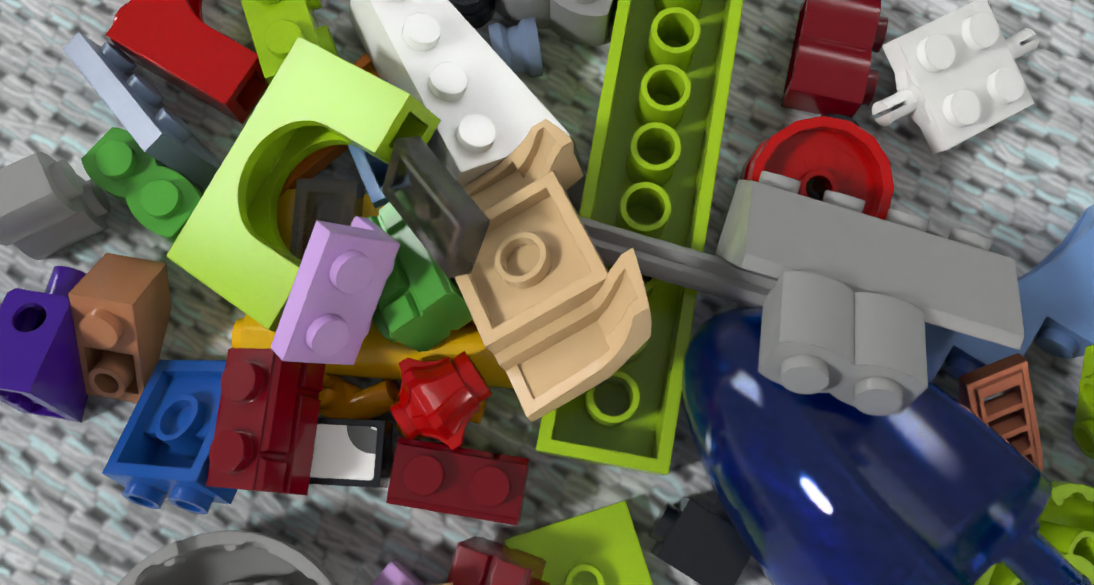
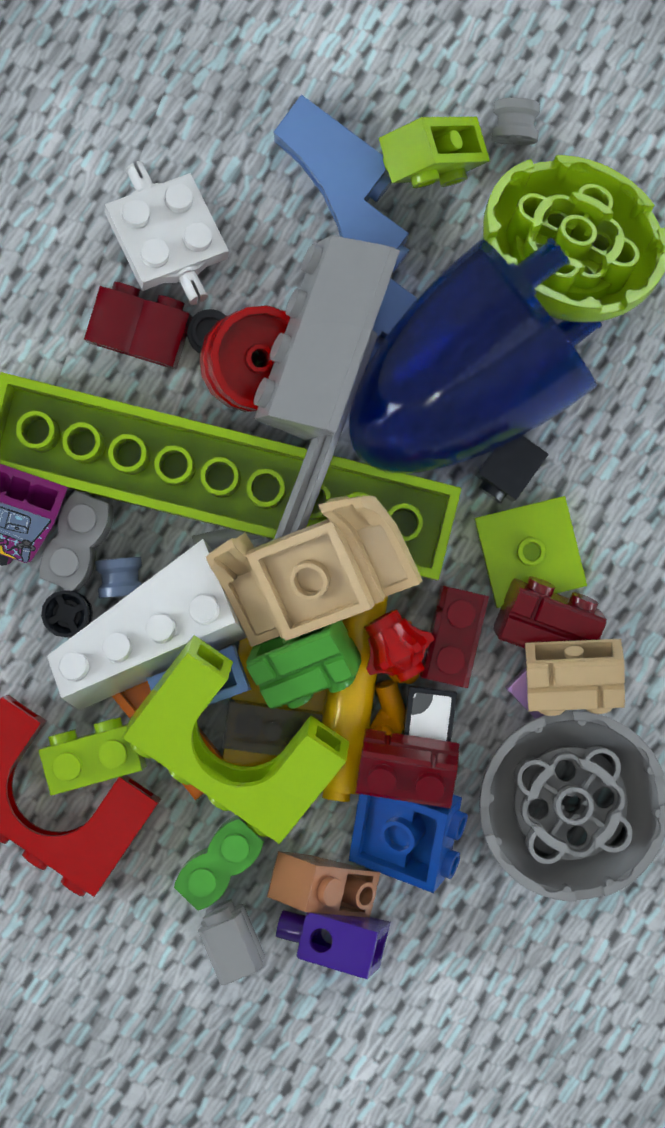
camera: 90 degrees left, 10 degrees up
(141, 109) = (157, 867): sand blue wing -> none
(335, 293) = (324, 710): lavender bracket -> none
(435, 206) = (266, 640): clear smoke plate -> none
(843, 343) = (390, 372): light grey brick -> none
(1010, 413) = (440, 242): copper slope -> none

